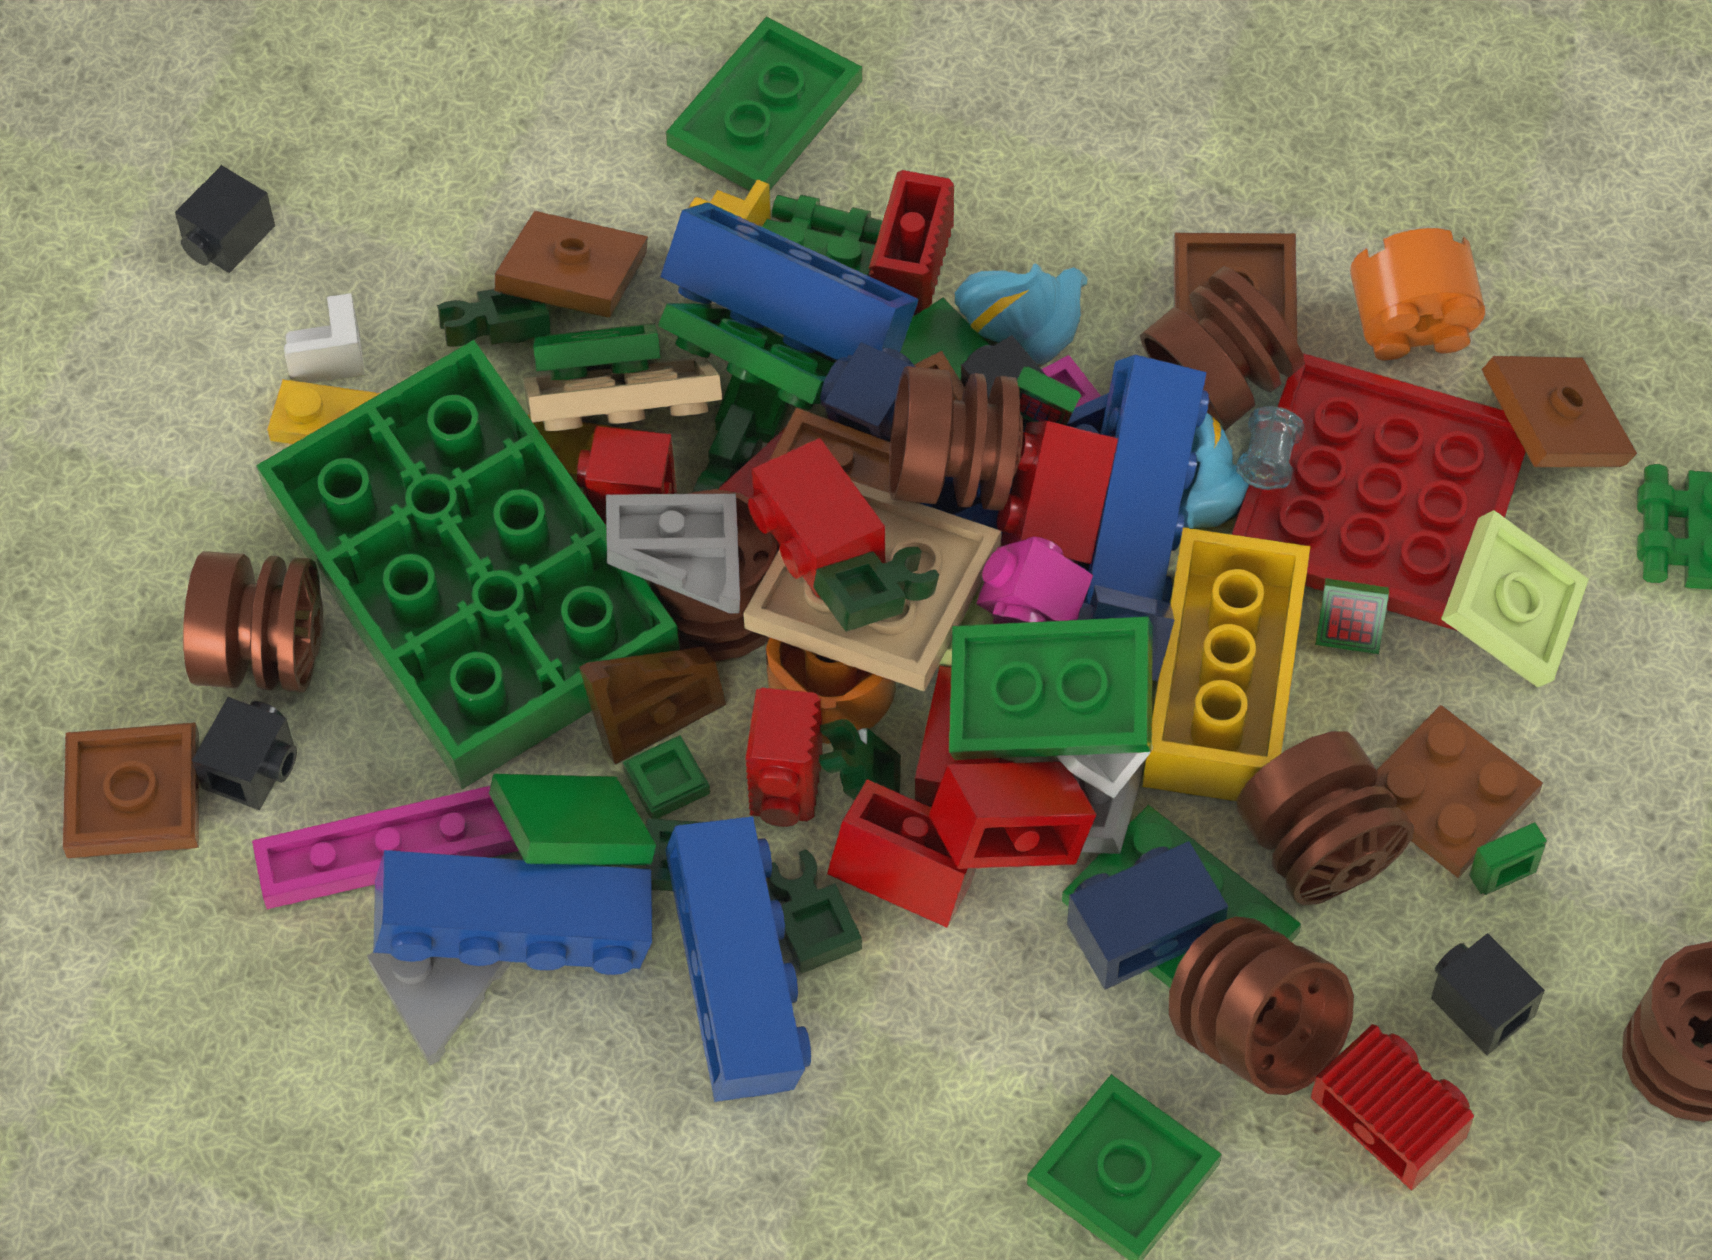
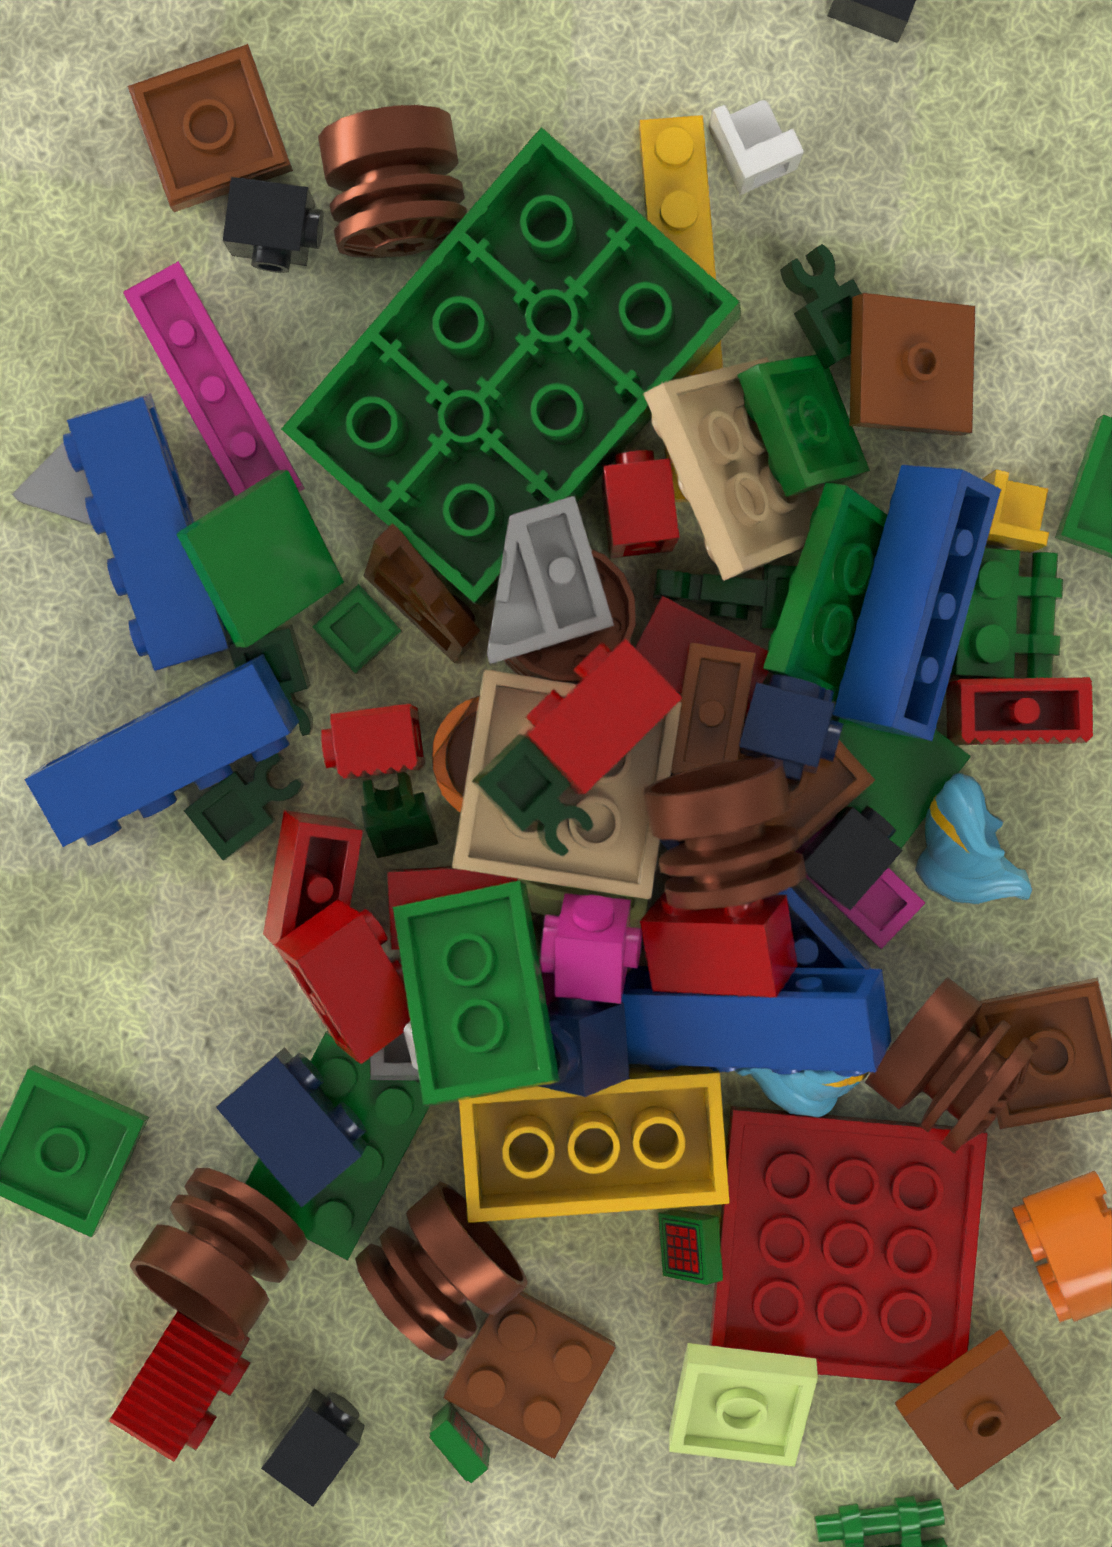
camera: 75 degrees right, 30 degrees up
(1045, 398) = (814, 907): green tile -> none
(1270, 447) = (848, 1136): clear light blue bush -> none

